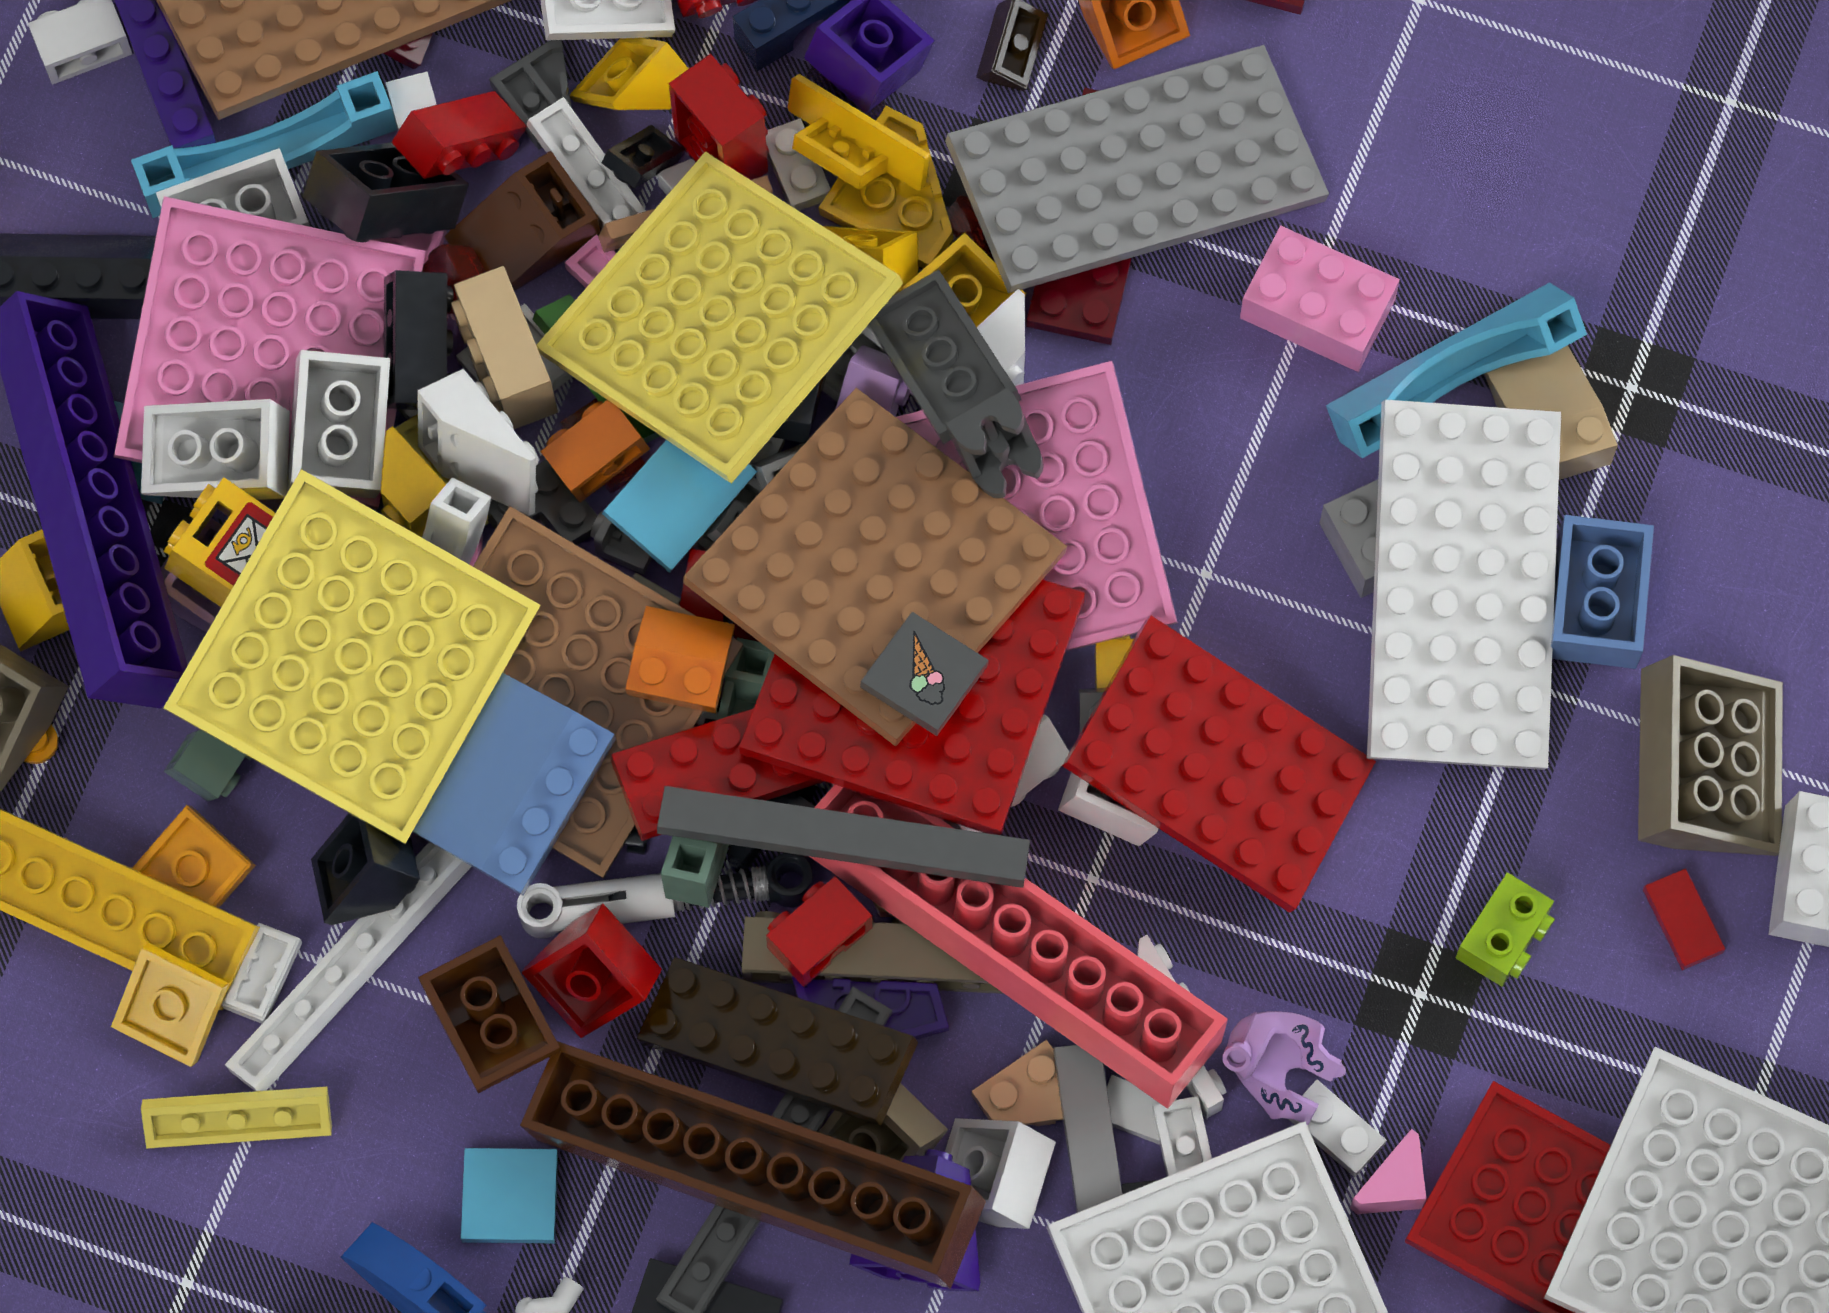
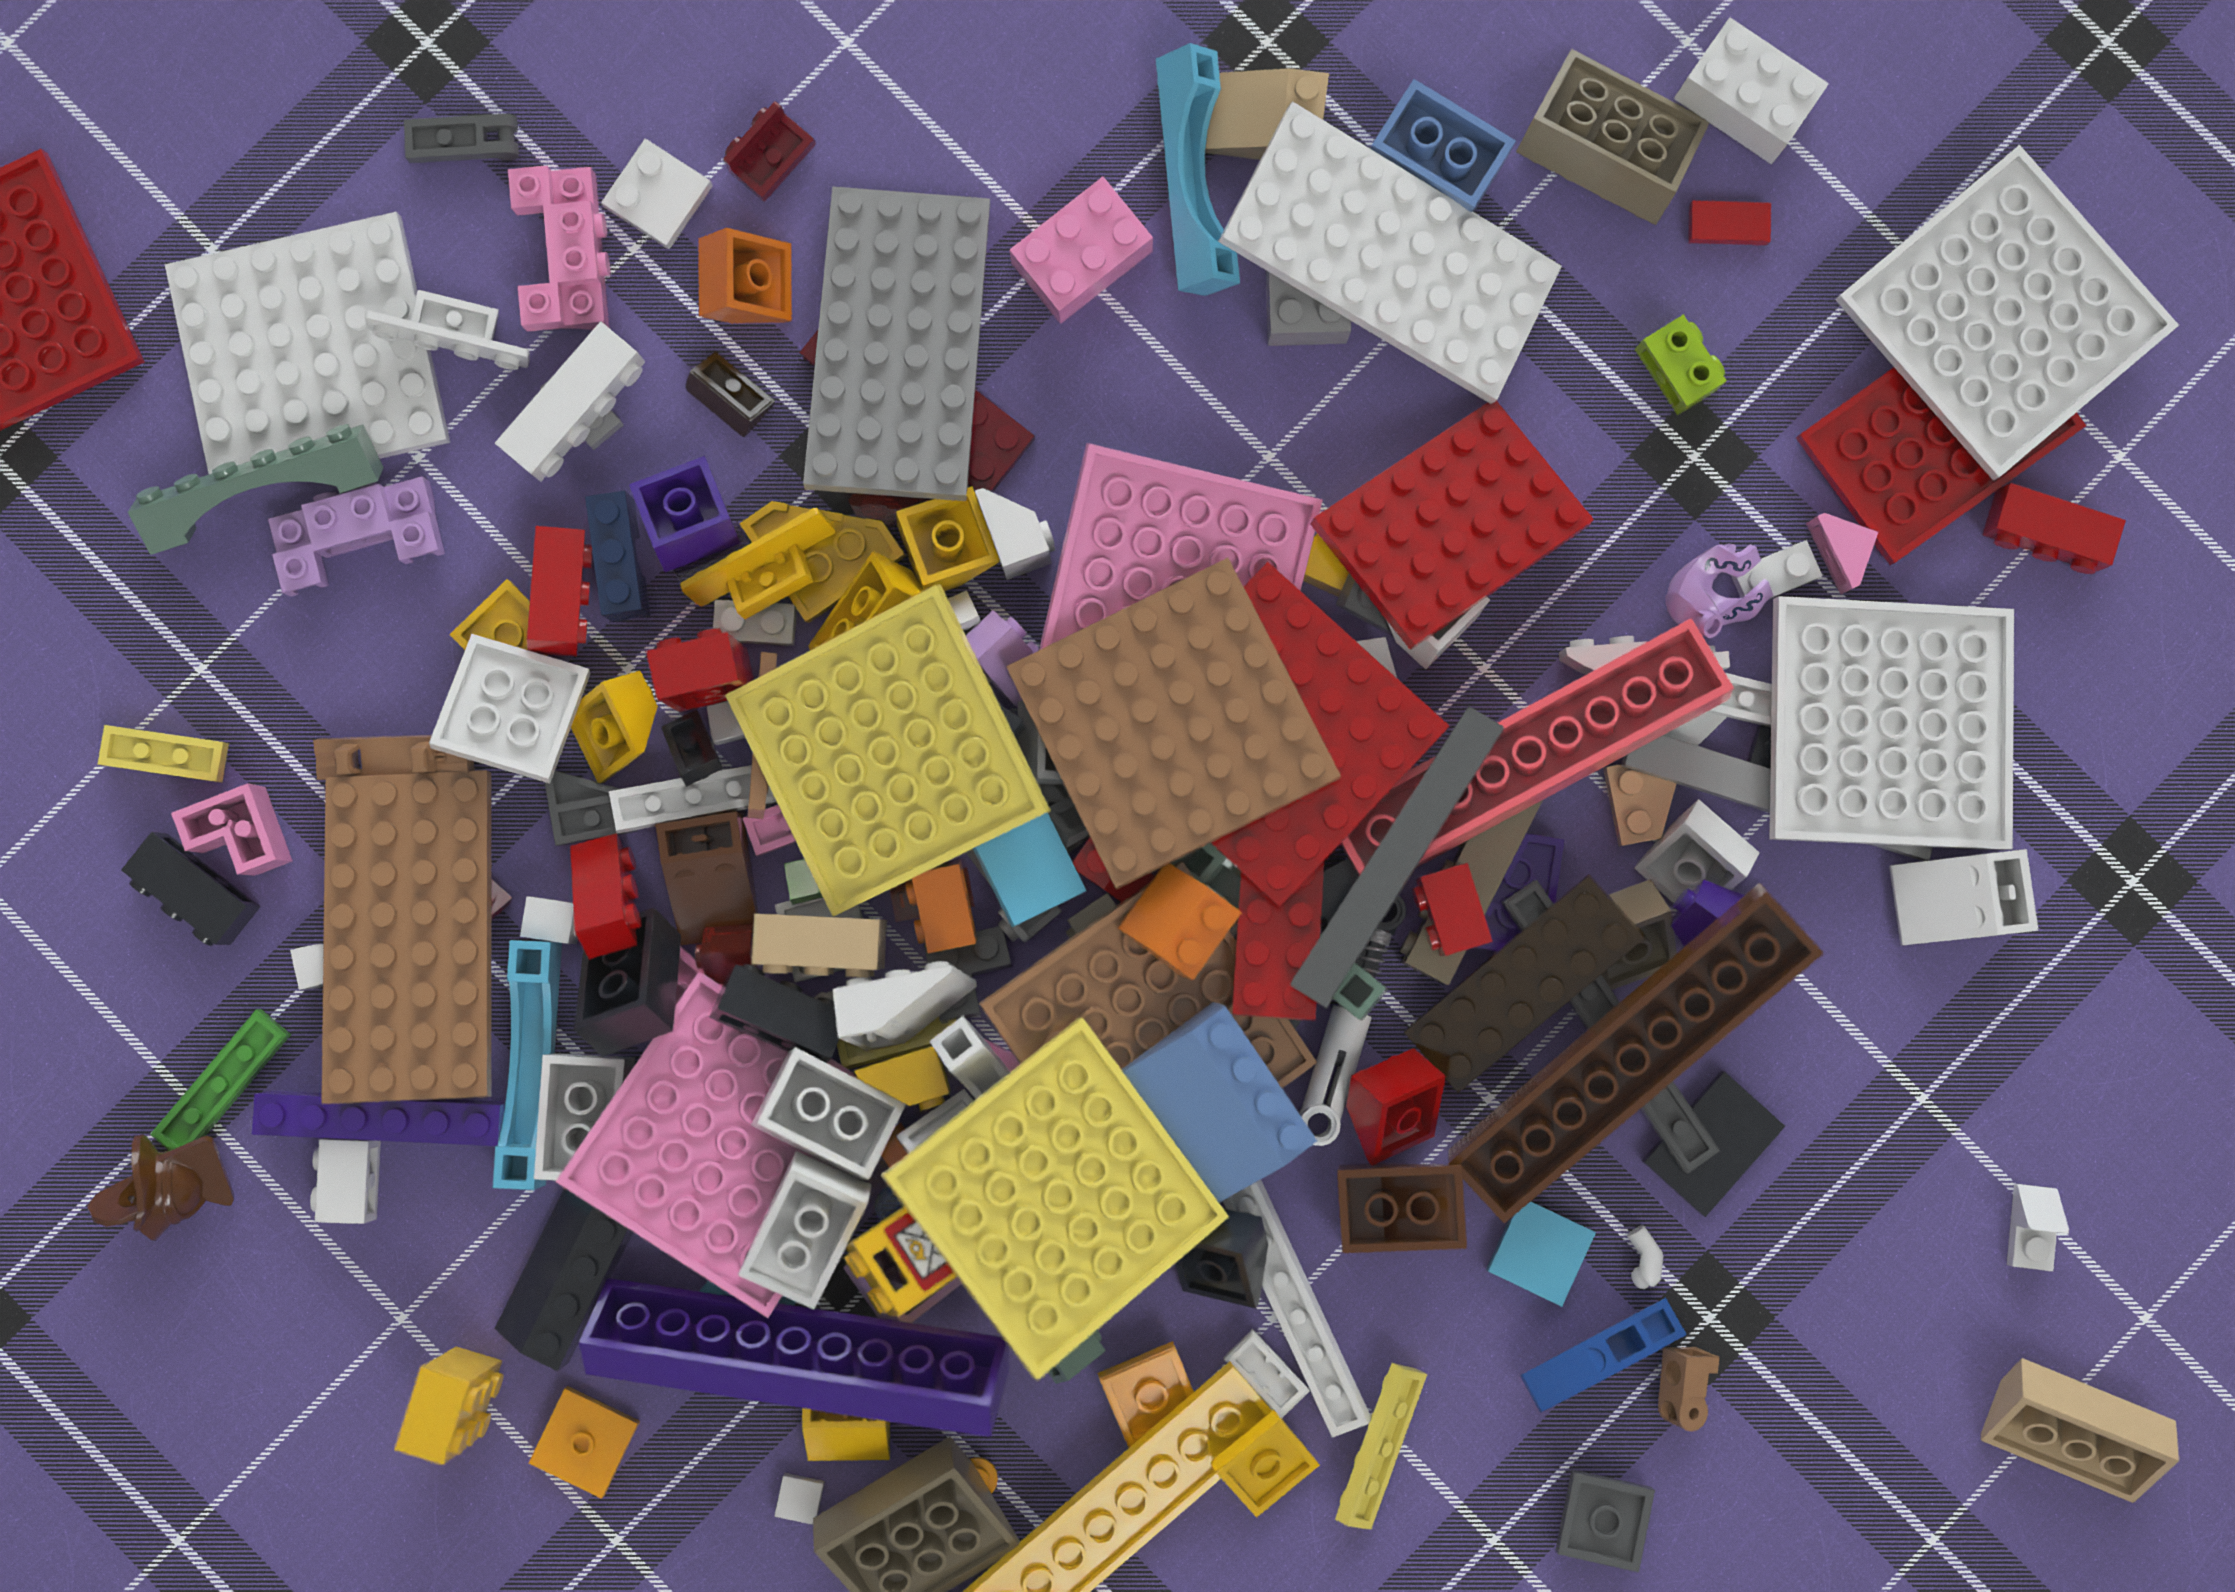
camera: 65 degrees left, 15 degrees up
(924, 673) = (1299, 727): dark grey tile -> none
(957, 381) = (1042, 578): dark grey hinge -> none

